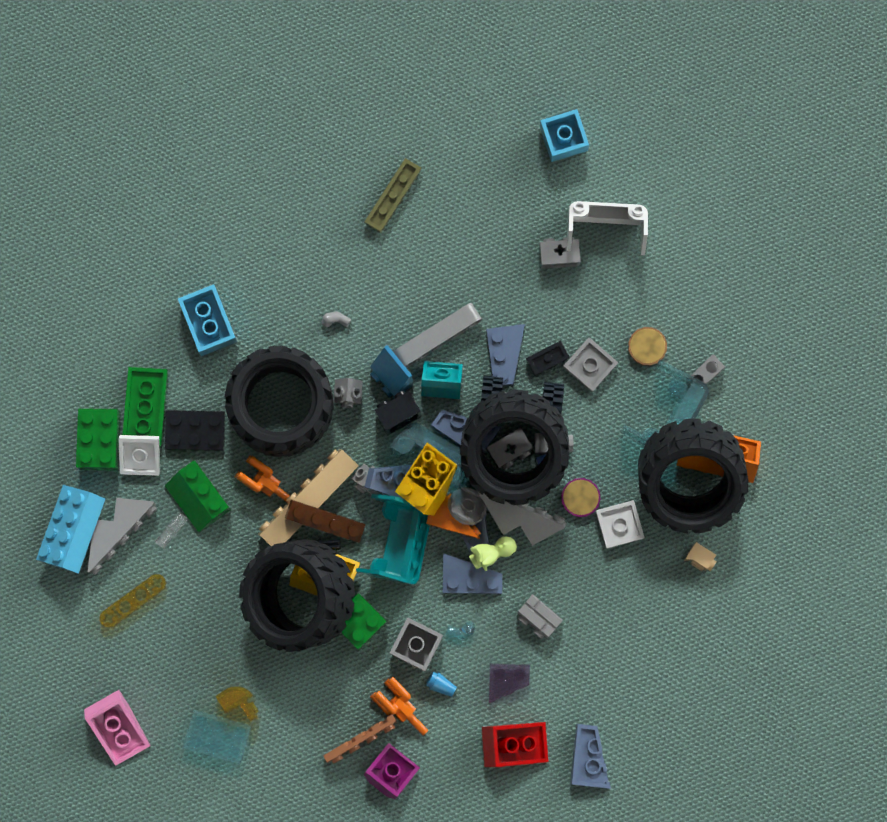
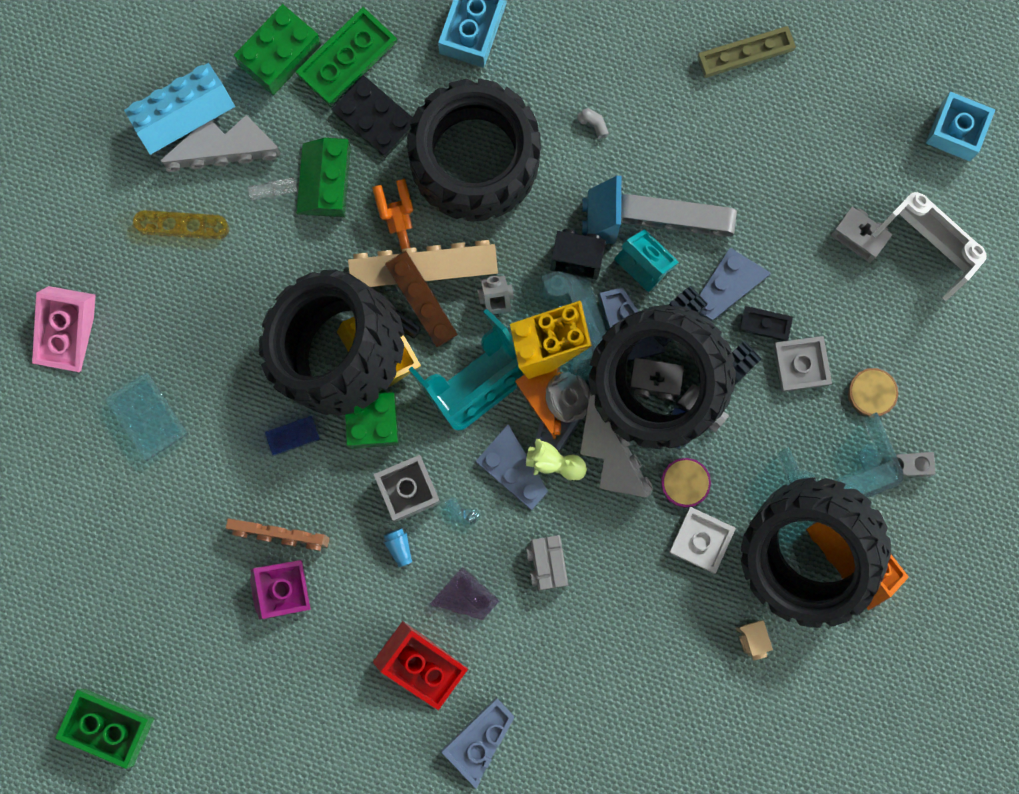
camera: 35 degrees right, 0 degrees up
(139, 455) = (302, 94): white plate -> none
(235, 697) = (195, 393): clear yellow brick -> none
(317, 672) = (292, 436): none -> clear blue plate
(348, 392) = (547, 197): light grey brick -> none
(386, 479) = (510, 305): sand blue wing -> none
(398, 704) = (341, 533): orange plant -> none

